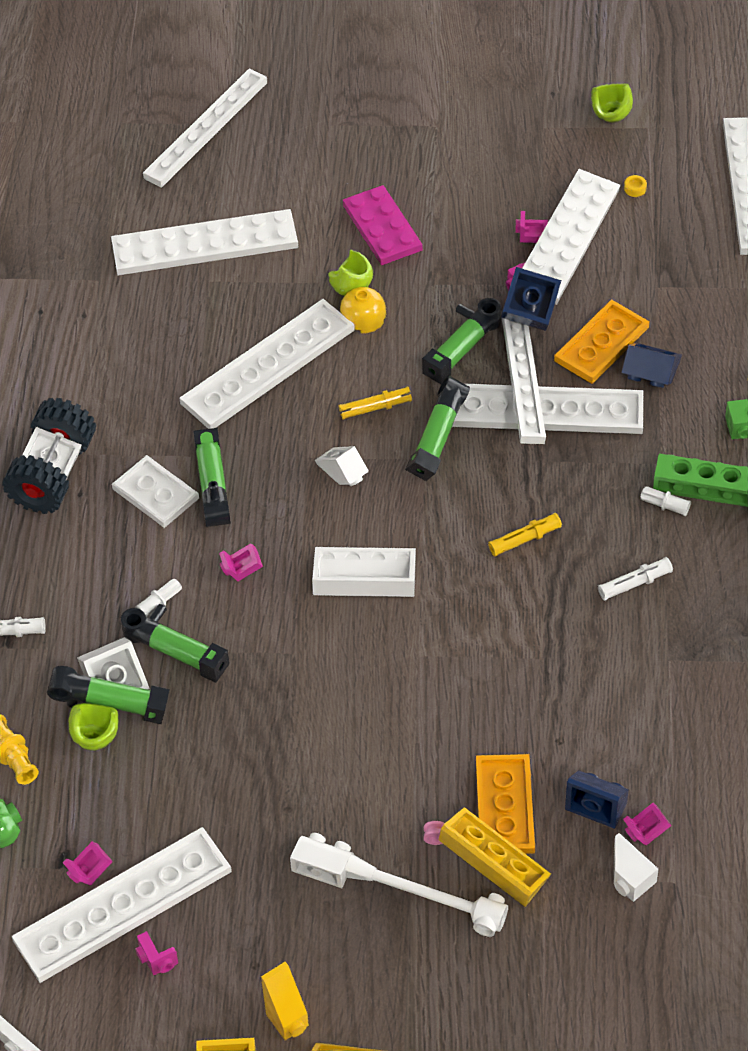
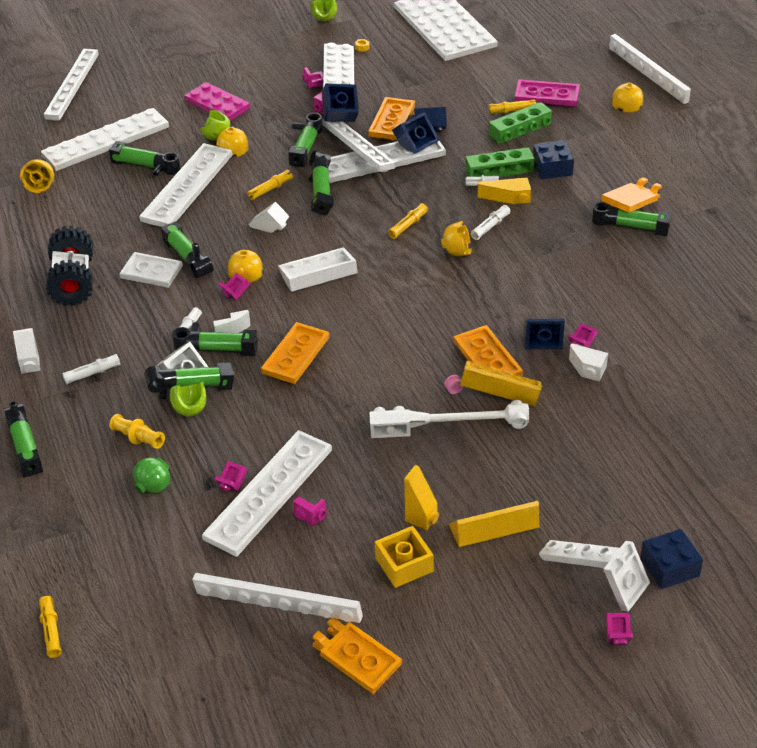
camera: 25 degrees left, 10 degrees down
(83, 282) = (37, 176): none -> yellow cylinder
(215, 624) = (235, 324): none -> white slope
(261, 315) = (122, 153): none -> piece
(263, 700) = (295, 353): none -> light orange plate
(272, 533) = (246, 264): none -> yellow cylinder
(569, 596) = (456, 240): none -> yellow cylinder
(611, 389) = (416, 133): none -> dark blue slope
(690, 533) = (506, 191): none -> yellow slope

